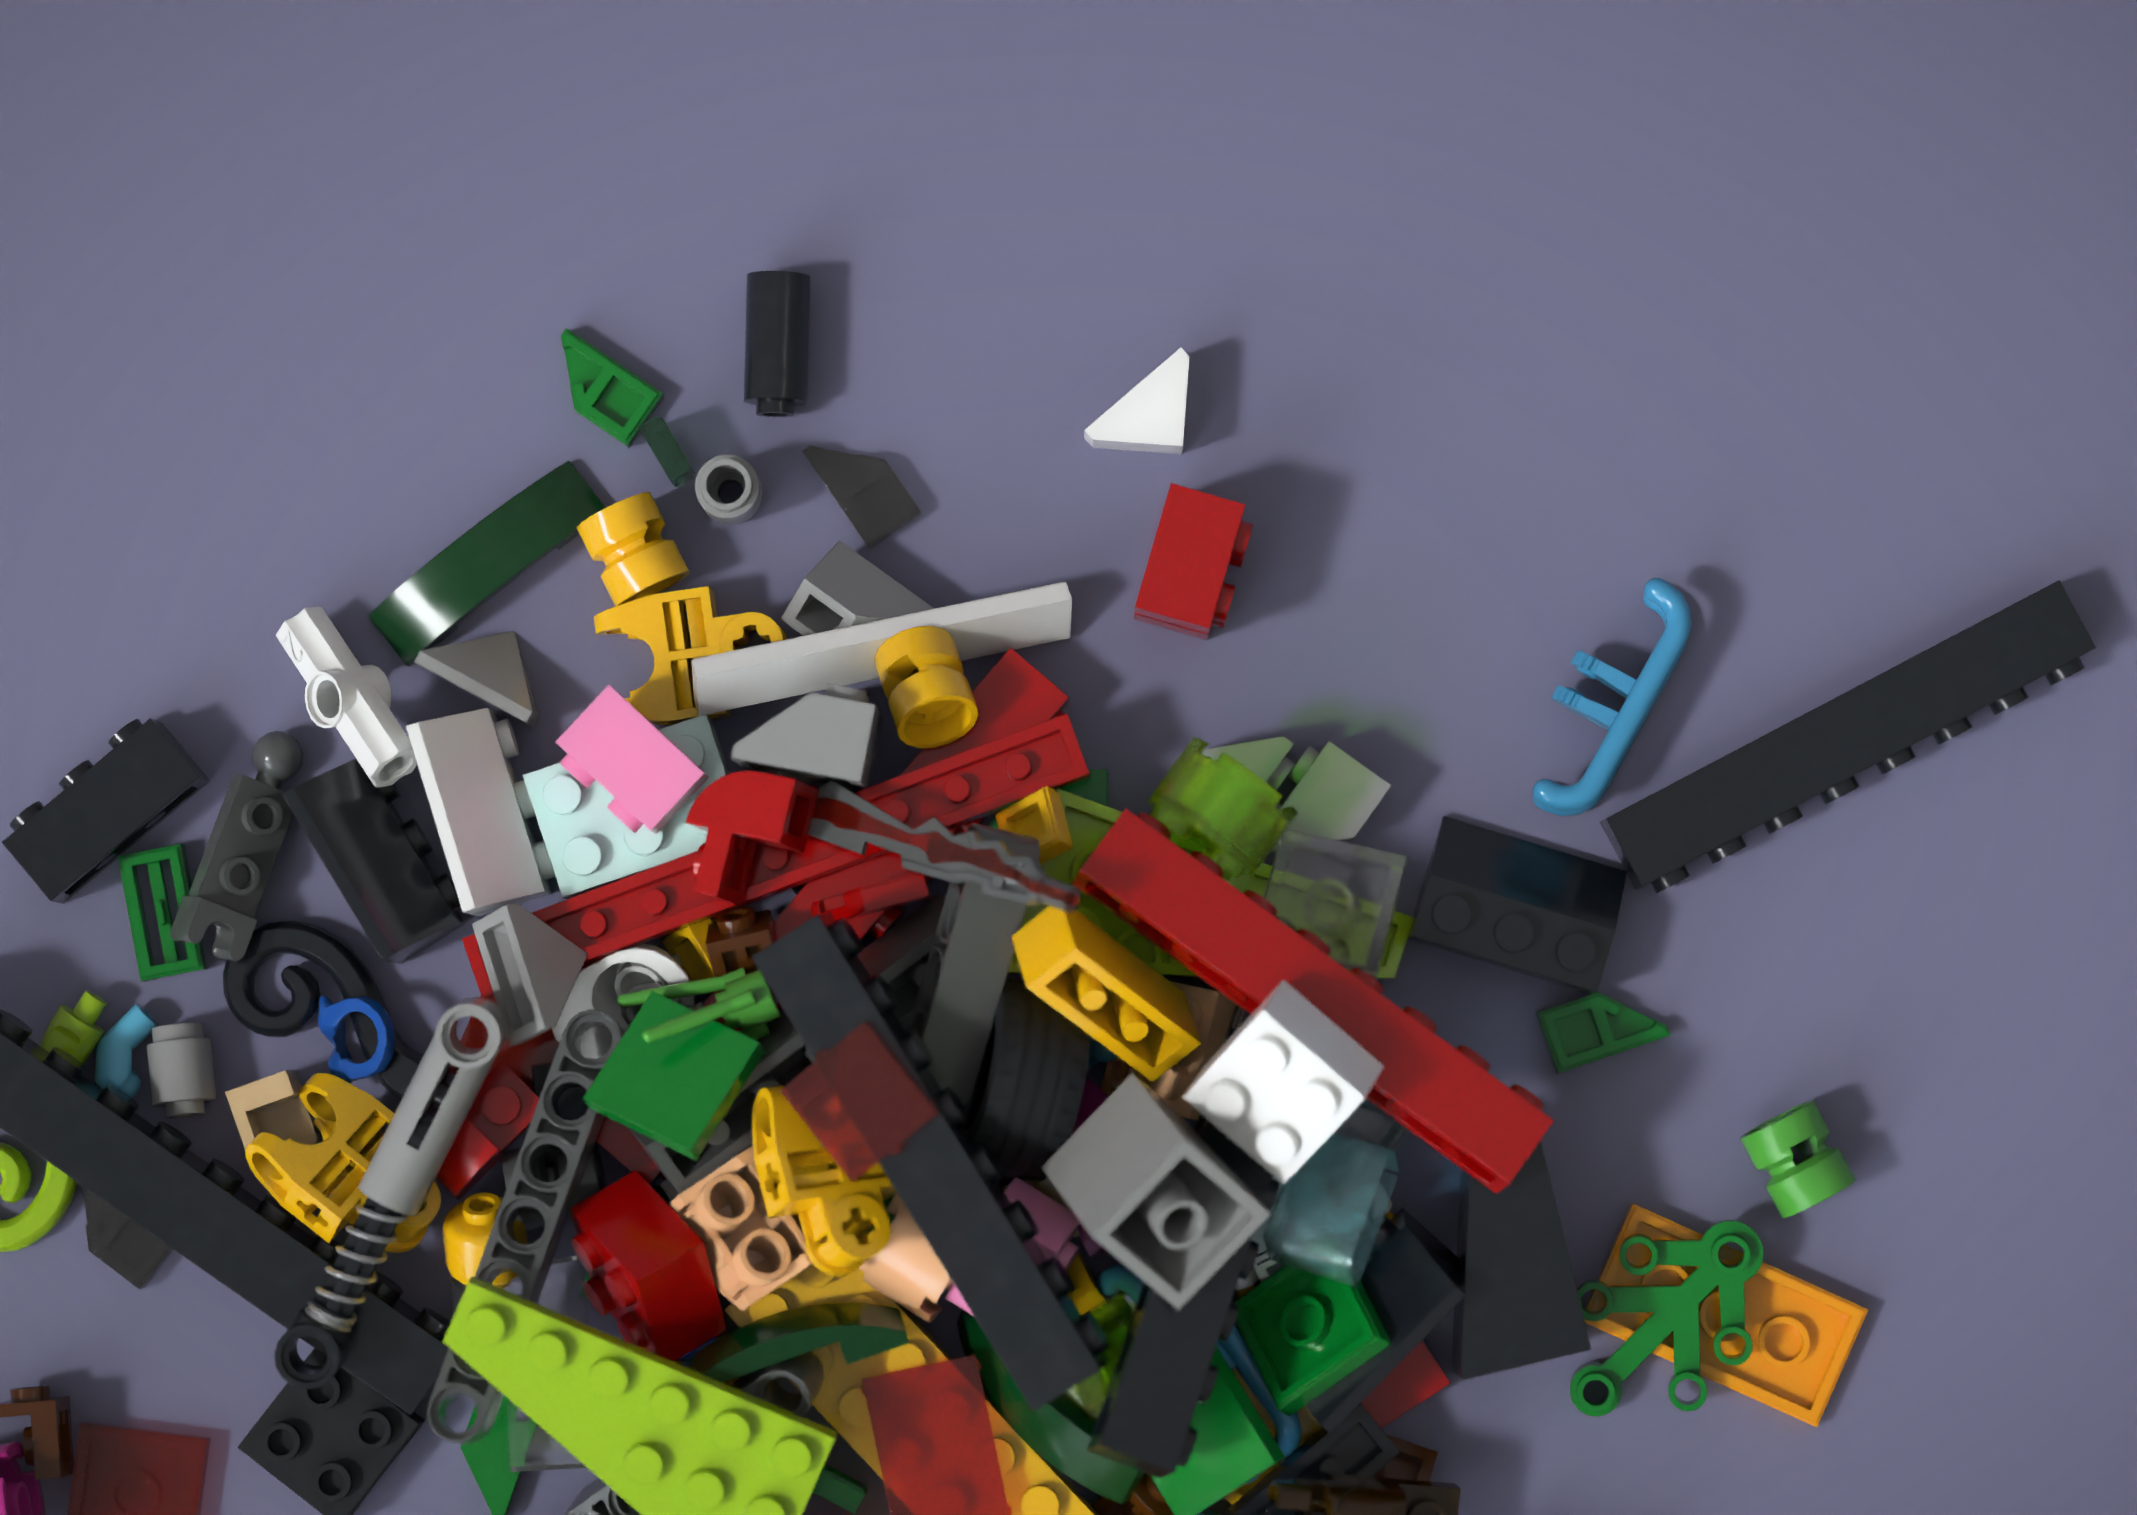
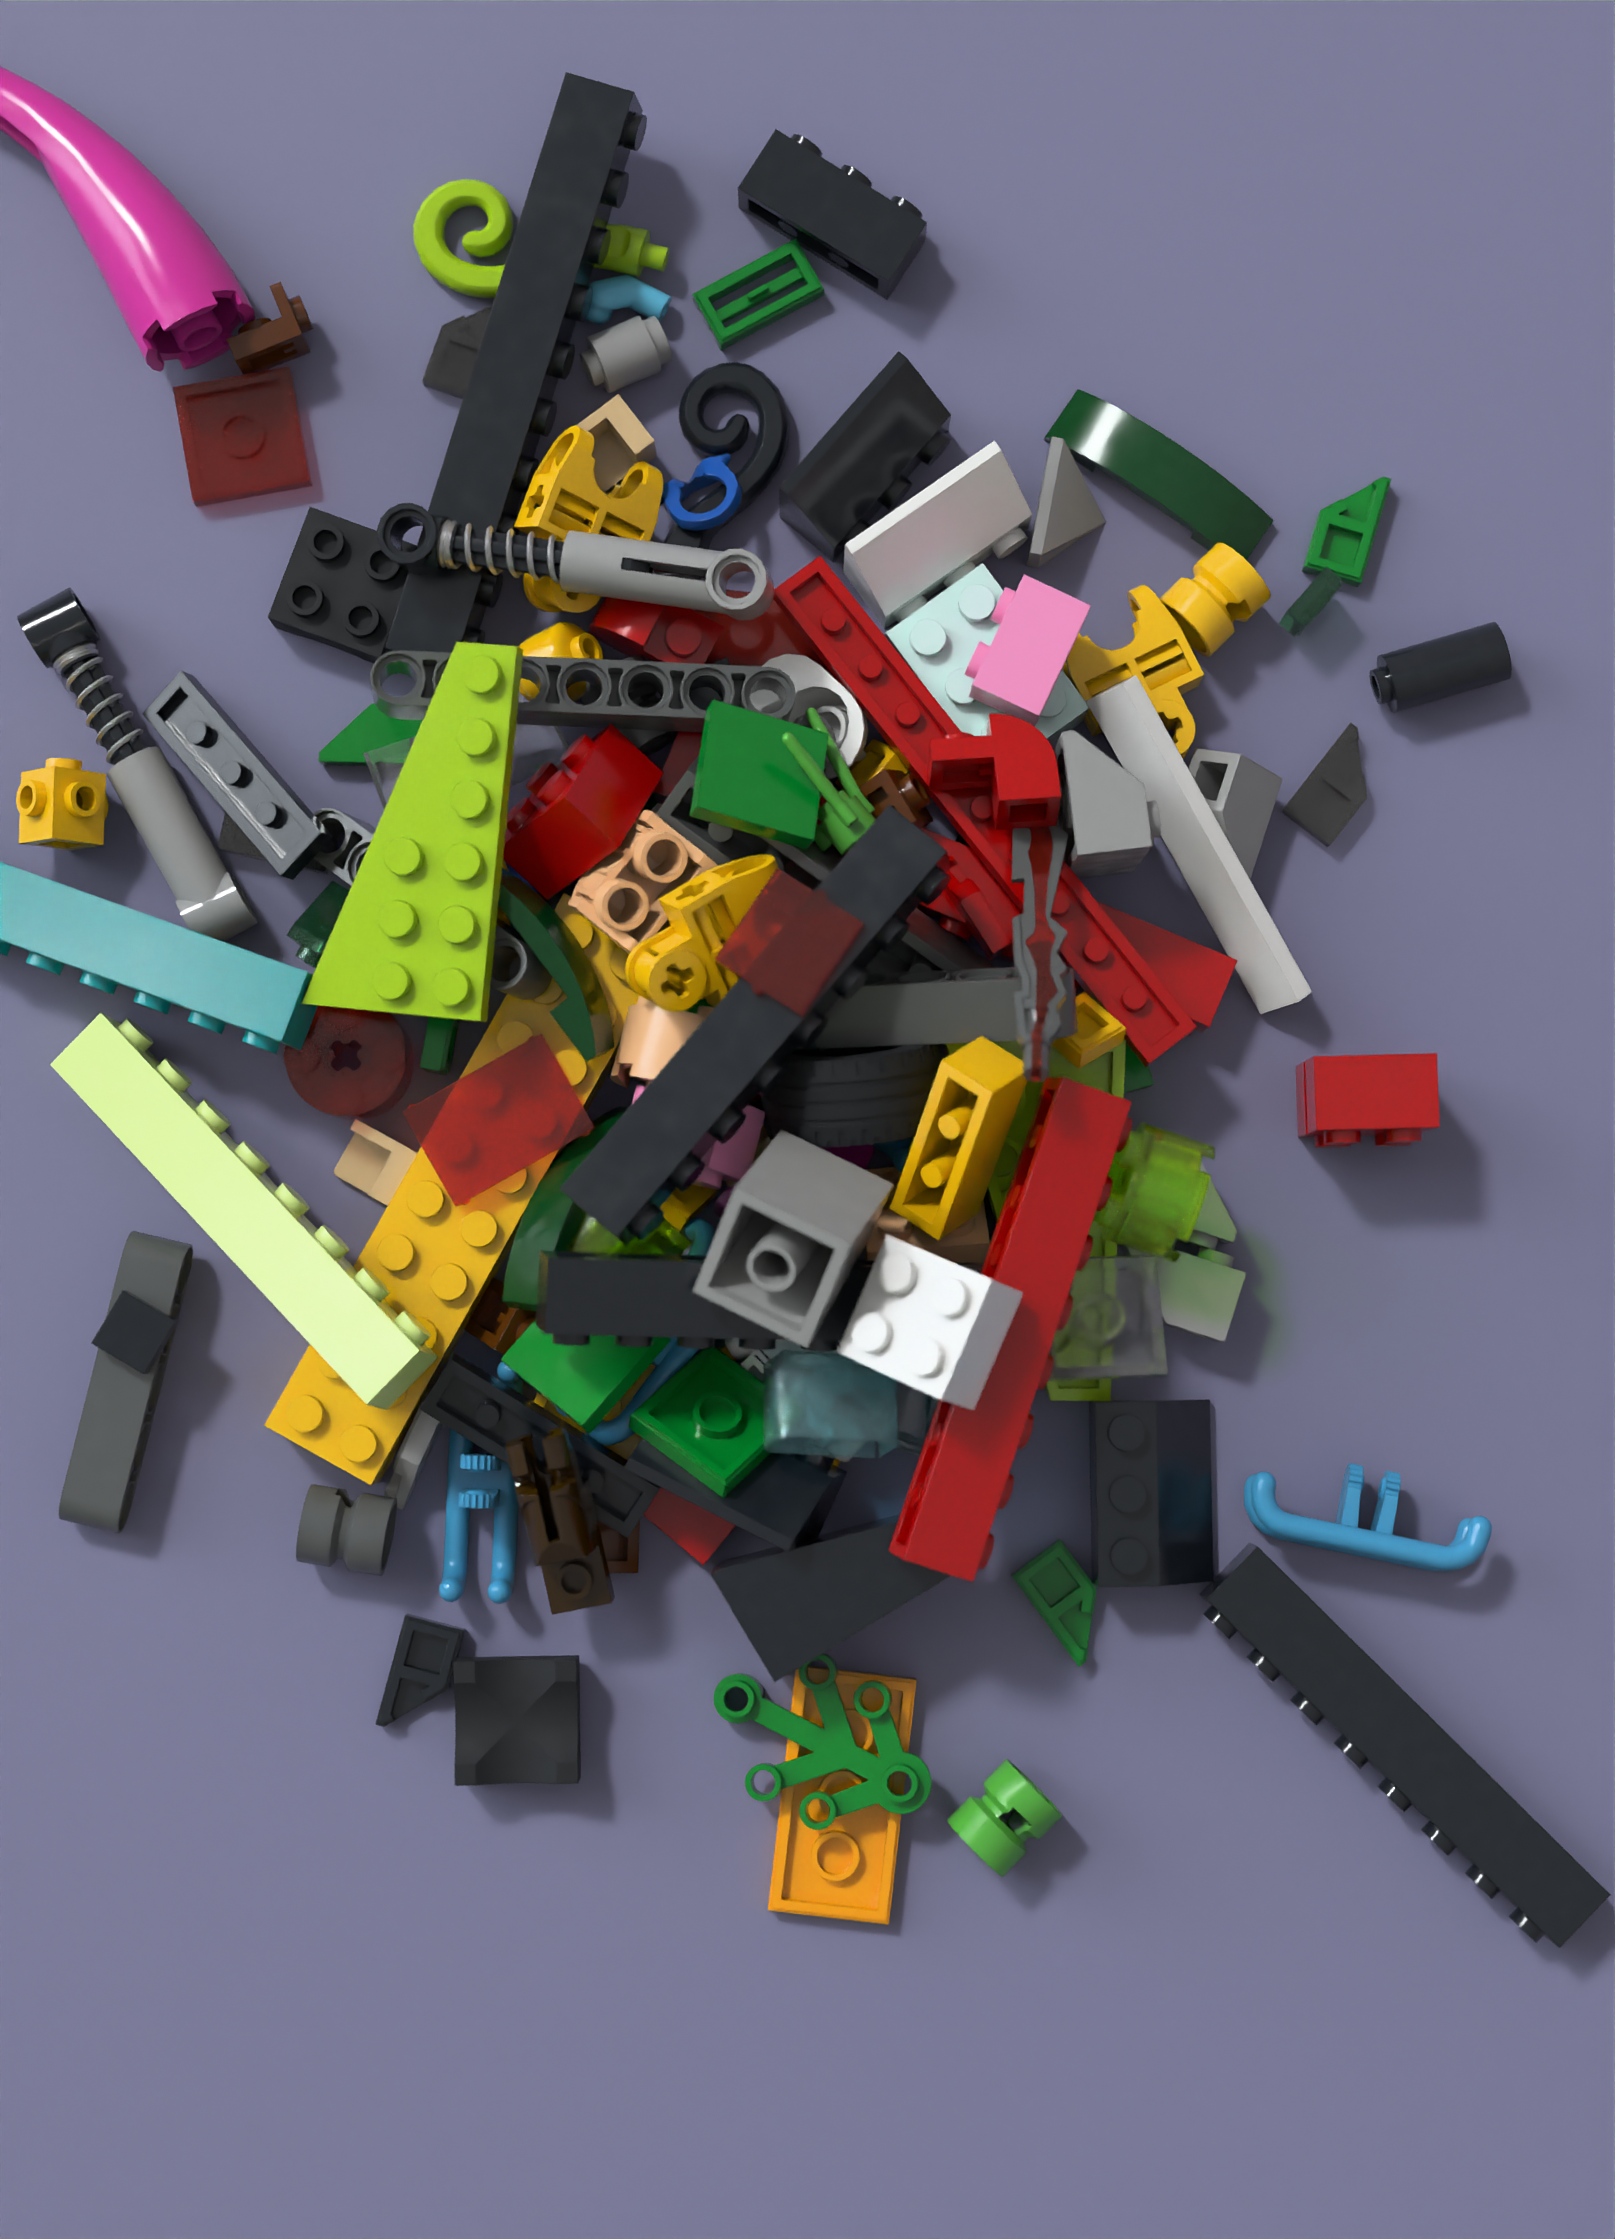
camera: 65 degrees right, 0 degrees up
(241, 852) = (834, 342): dark grey plate -> none
(348, 696) = (1002, 388): white piece -> none
(527, 969) = (813, 619): light grey slope -> none
(715, 475) = (1302, 650): light grey brick -> none
(926, 687) = (1178, 894): yellow wheel -> none
(1149, 414) = (1485, 1019): white slope -> none

